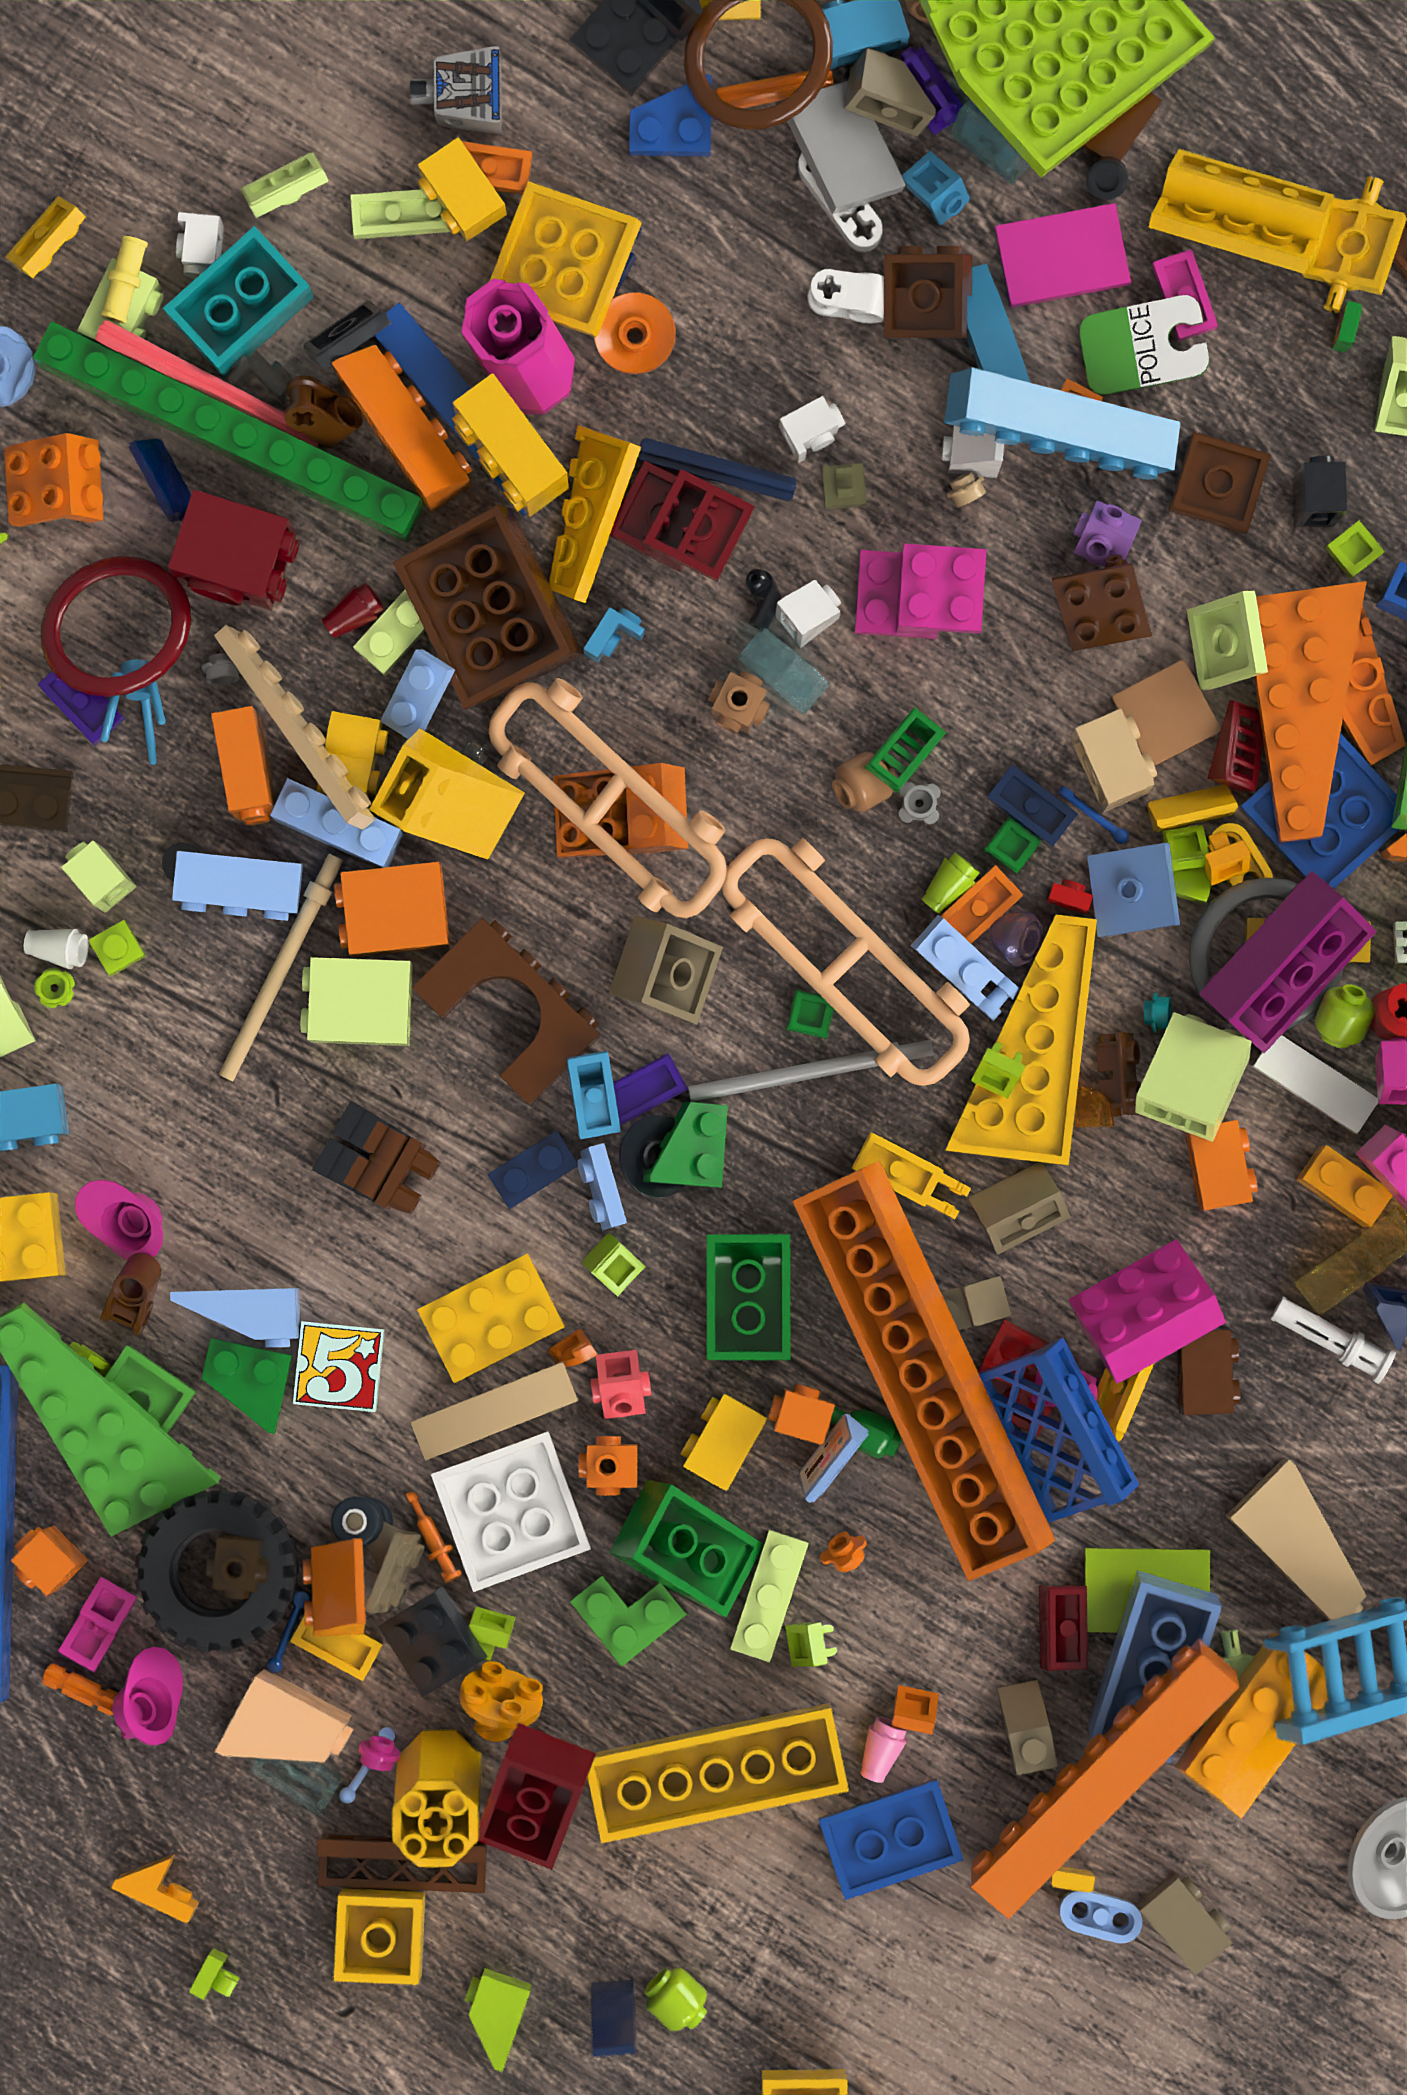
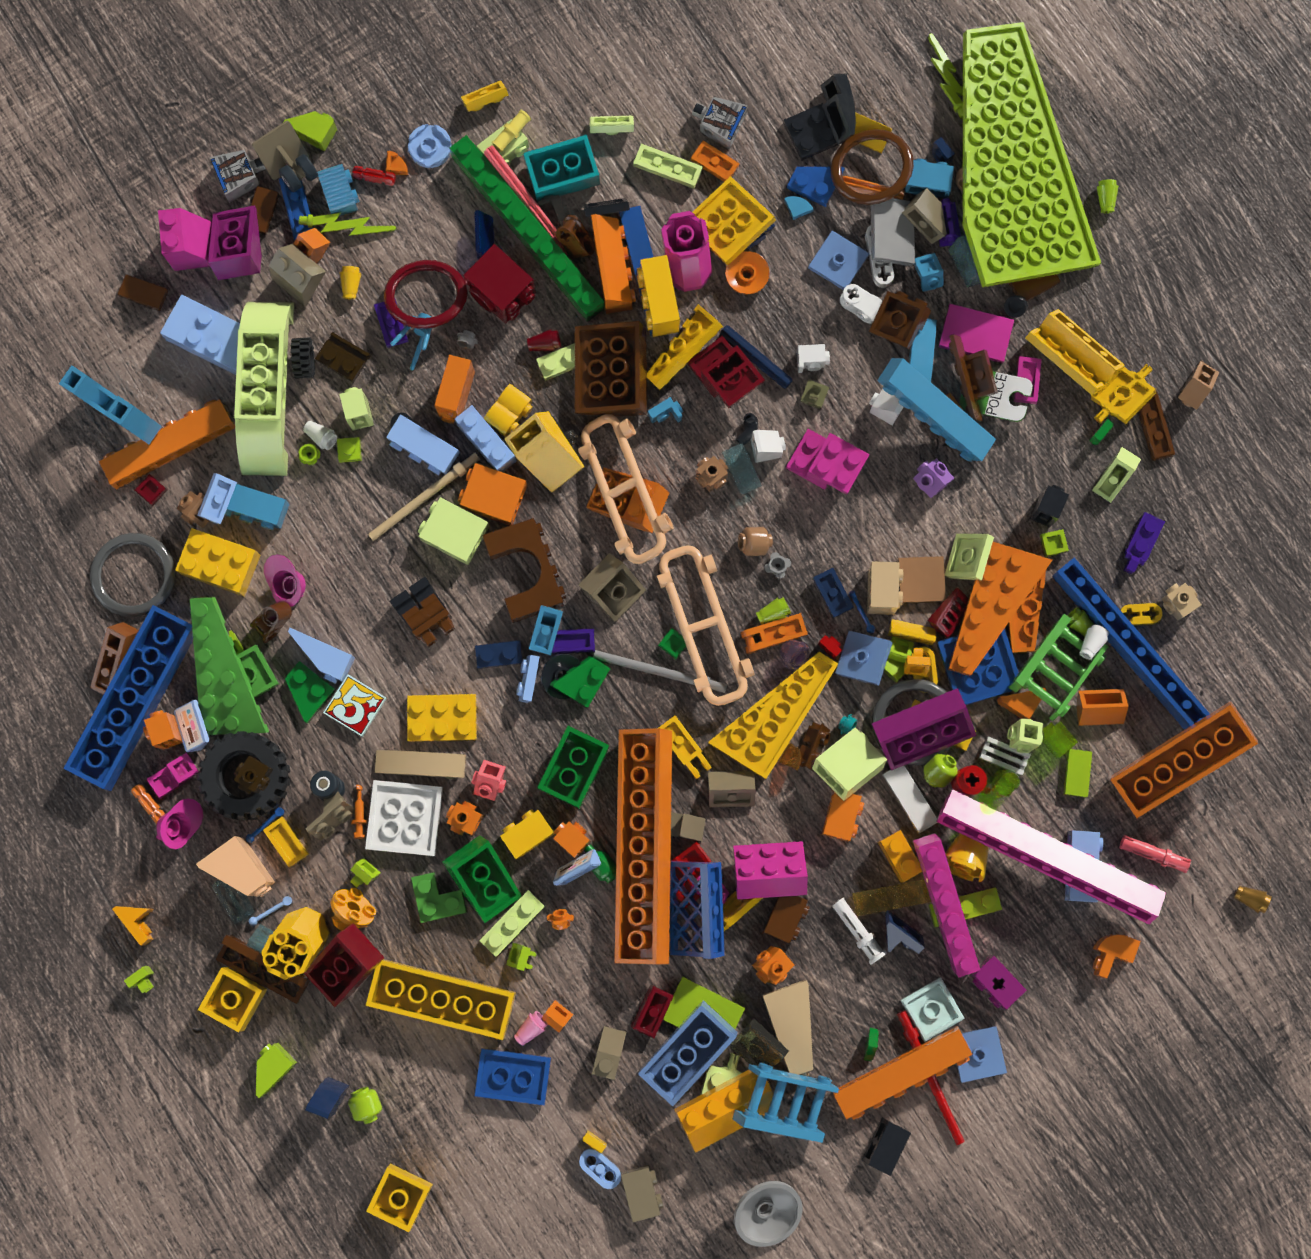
camera: 25 degrees right, 5 degrees down
(54, 480) = (431, 212): orange bracket -> none
(89, 1531) = (191, 726): none -> slope
(200, 242) = (558, 131): white brick -> none
(303, 737) = (488, 385): tan plate -> none
(336, 1589) = (298, 814): orange slope -> none
(376, 1817) = (259, 938): none -> clear light blue plate
(379, 1753) = (278, 907): dark pink plate -> none
(417, 694) = (556, 395): light blue plate -> none
(432, 1641) = (332, 863): black plate -> none
(461, 190) = (695, 164): yellow brick -> none
(573, 1349) = (474, 752): orange tile -> none
(613, 1264) = (515, 720): lime slope -> none
(664, 178) = (797, 206): none -> dark azure tile
(776, 239) = (838, 260): none -> medium blue plate
(921, 727) = (796, 528): green slope -> none
(964, 966) = (761, 655): light blue plate -> none
(966, 489) = (874, 423): tan plate -> none
(998, 1071) = (752, 714): lime tile -> none
(1012, 845) = (814, 608): green tile -> none
(1096, 331) = (975, 376): none -> reddish brown bracket
(1102, 605) = (914, 510): reddish brown hinge -> none
(1103, 1777) = (635, 1096): orange brick -> none
(1219, 482) = (1002, 479): reddish brown tile -> none
(1223, 1461) = (772, 965): none -> orange brick
(1262, 1601) = (758, 1045): none -> clear smoke plate

